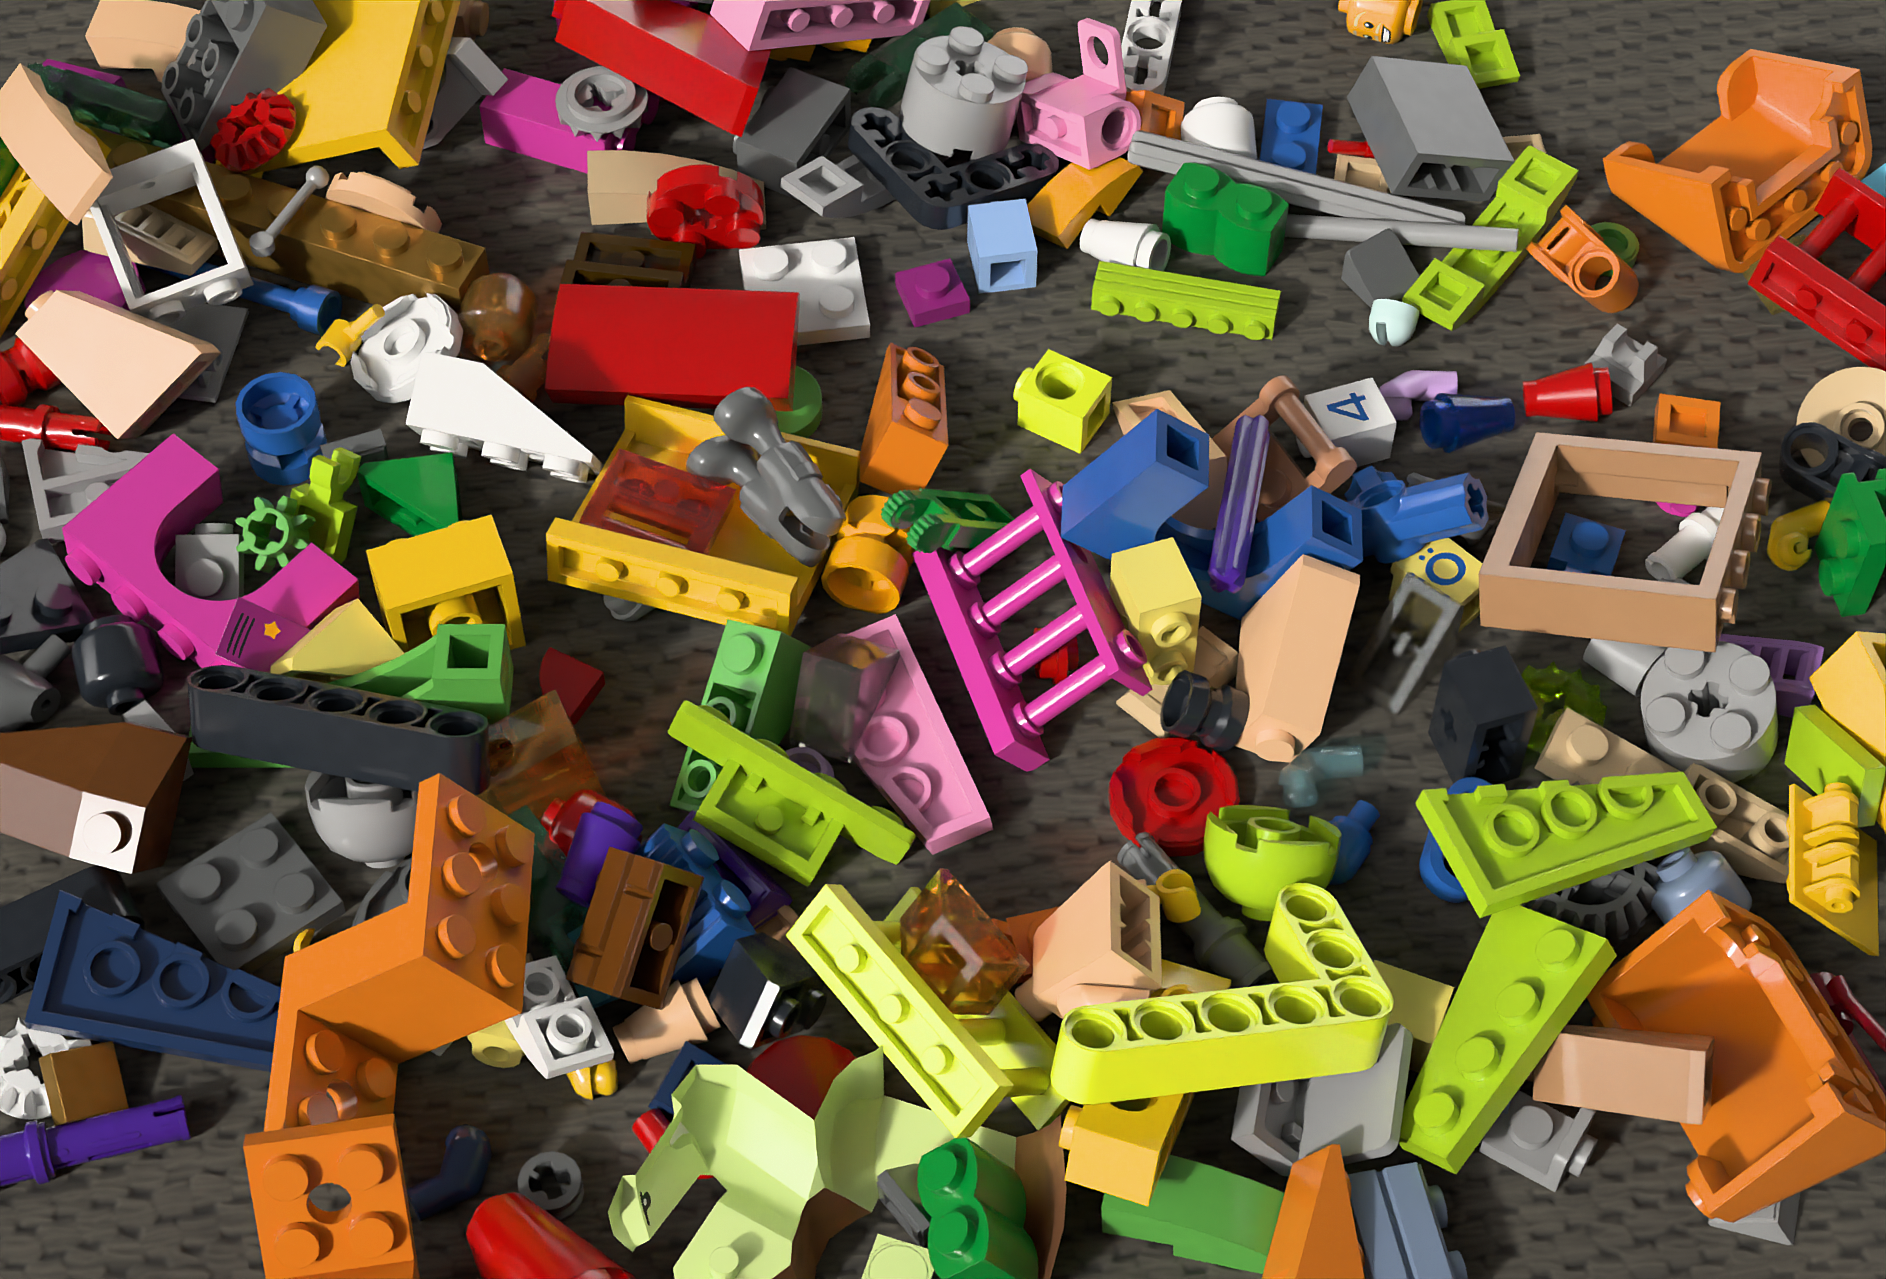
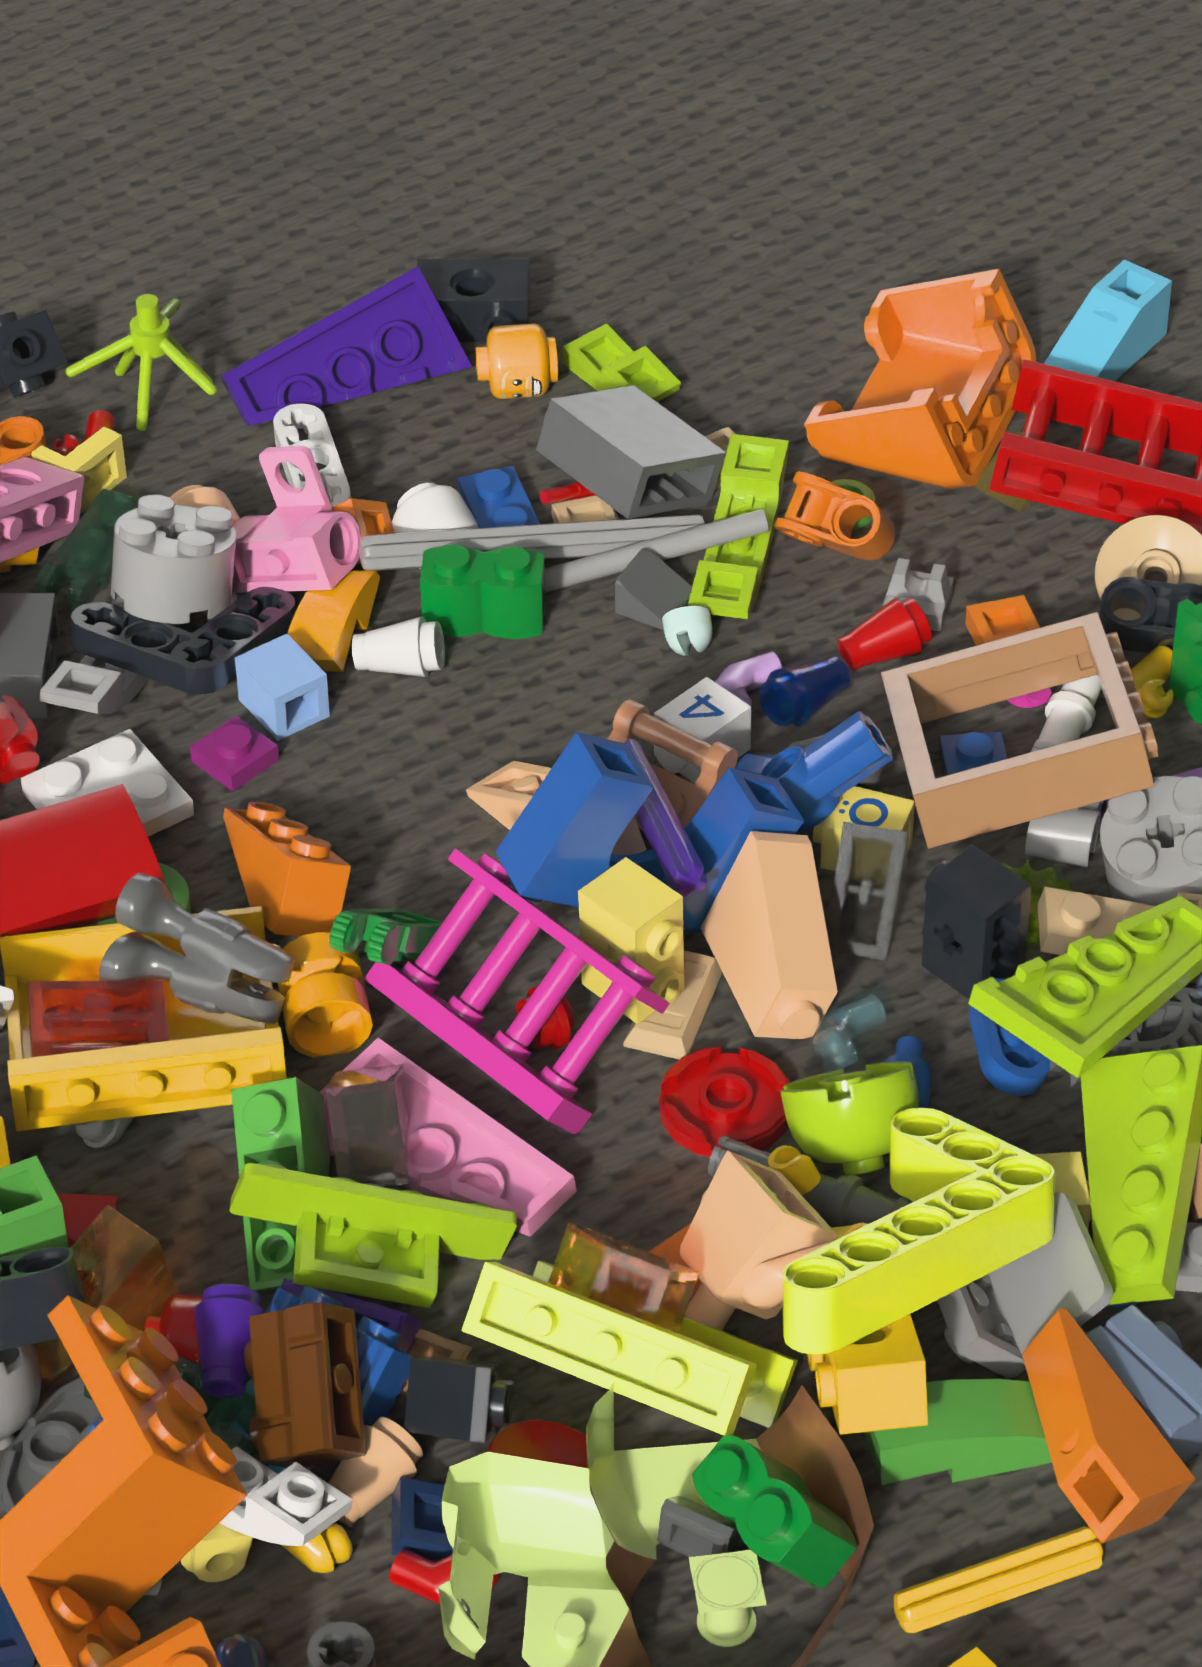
camera: 25 degrees left, 10 degrees down
(1063, 400) = (422, 800): neon yellow brick -> none
(1185, 300) = (484, 677): lime piece -> none
(1205, 711) = (712, 1013): black wheel -> none

